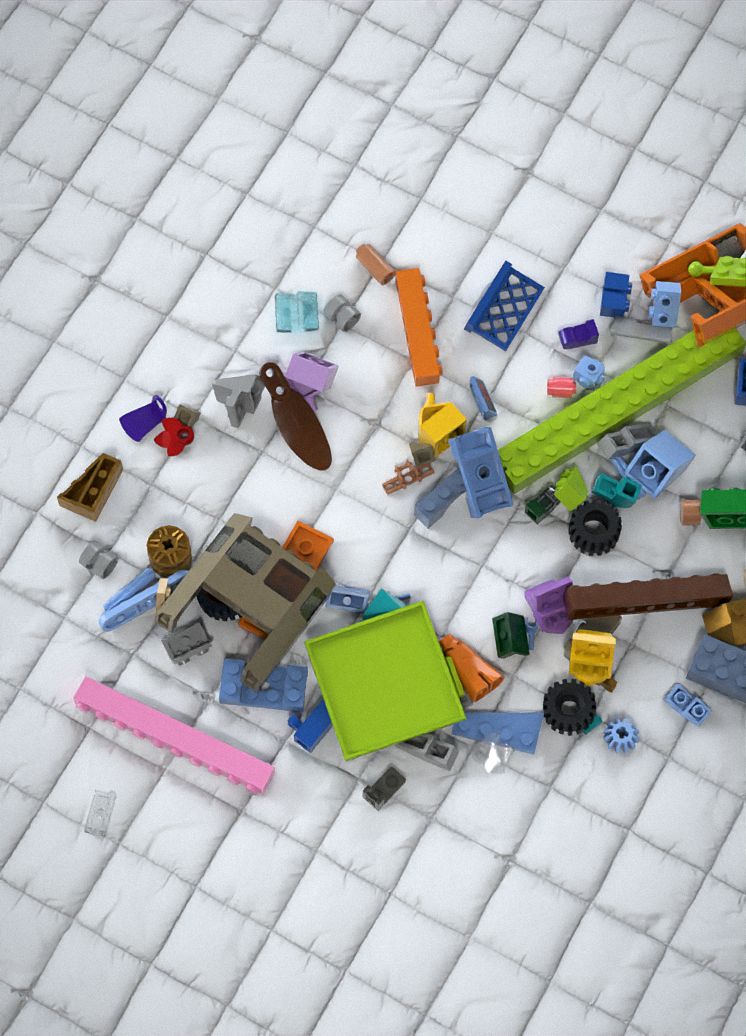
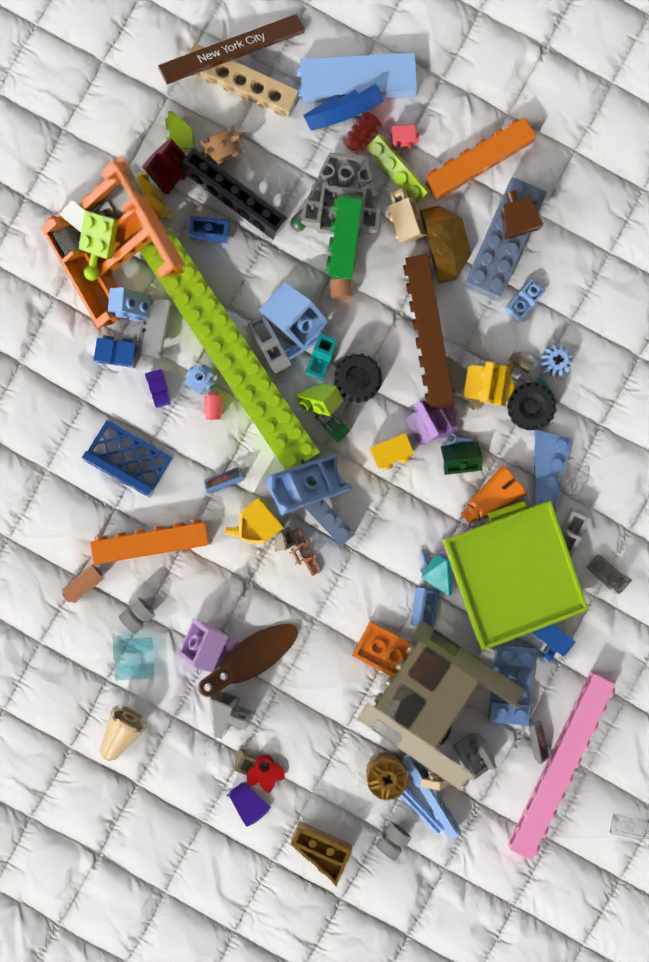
camera: 90 degrees left, 20 degrees up
(200, 713) = (538, 741): none -> light grey slope
(223, 297) = (121, 731): none -> tan cone
(516, 560) = (392, 451): none -> yellow brick
(618, 699) = (522, 362): none -> dark tan pin

